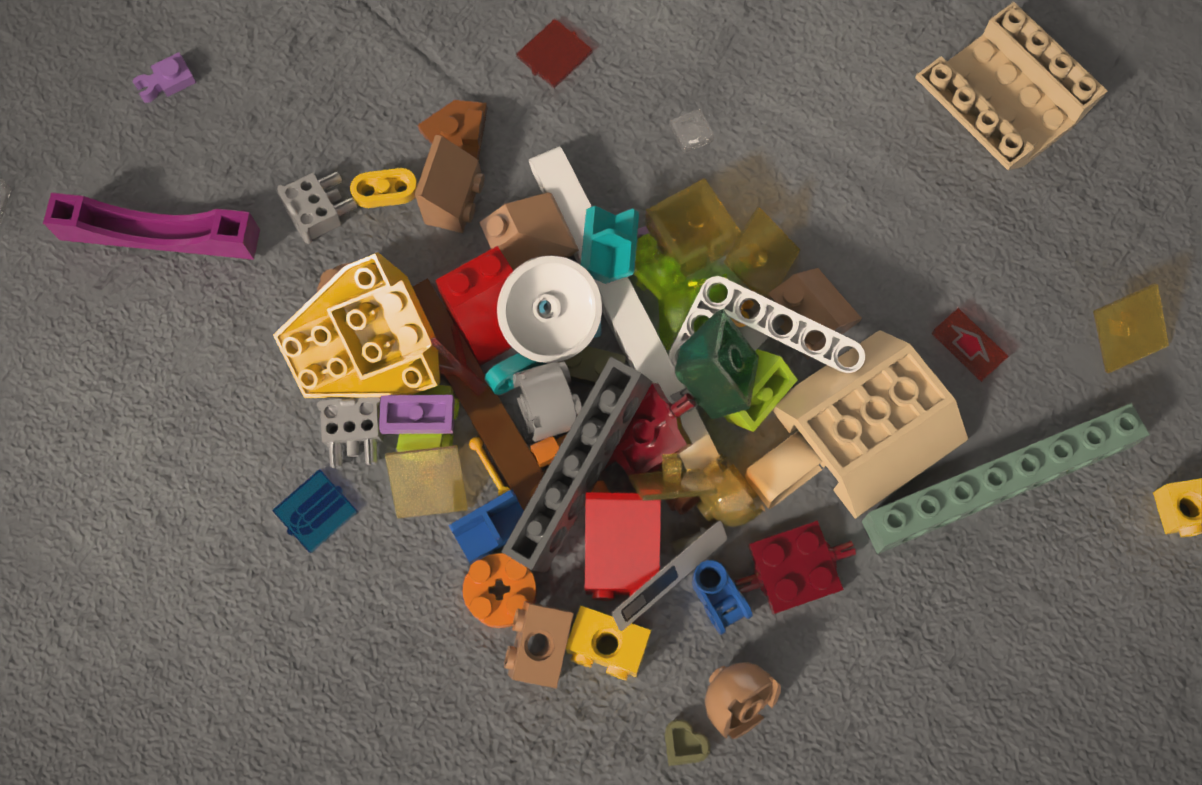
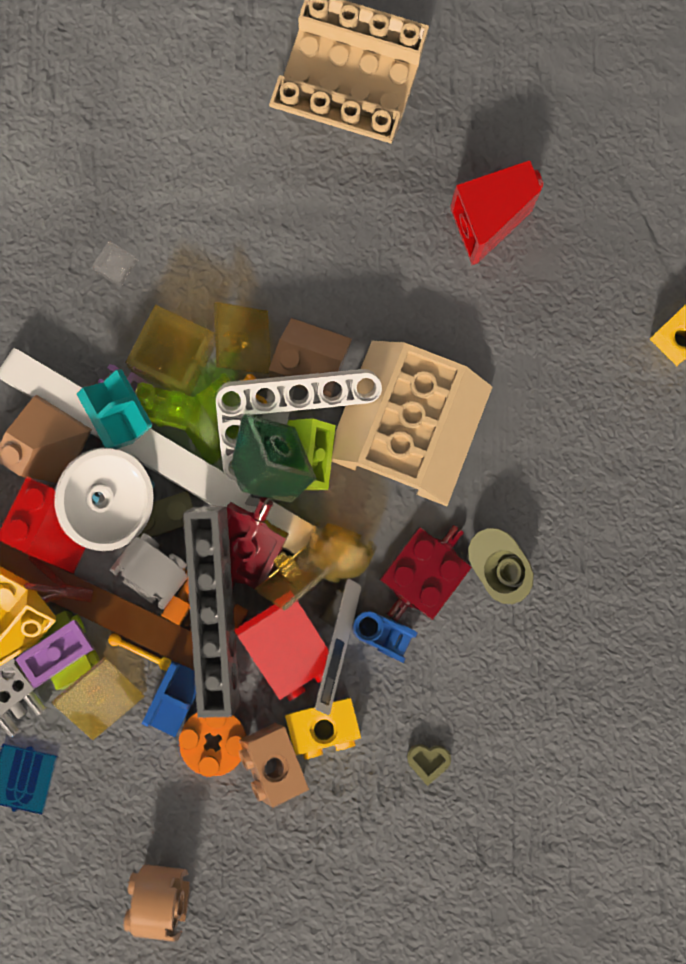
camera: 45 degrees left, 10 degrees up
(352, 696) = (157, 902): none -> medium nougat brick
(501, 375) = (100, 574): teal beam -> none
(738, 696) = (446, 702): medium nougat cylinder -> none
(783, 469) = (369, 504): tan piece -> none
(873, 603) = (501, 565): none -> olive piece
(969, 344) = (447, 307): clear red tile -> none
(1004, 478) = (537, 402): sand green brick -> none
(1072, 278) = (493, 206): none -> red slope
(1131, 328) = (561, 218): clear yellow piece -> none

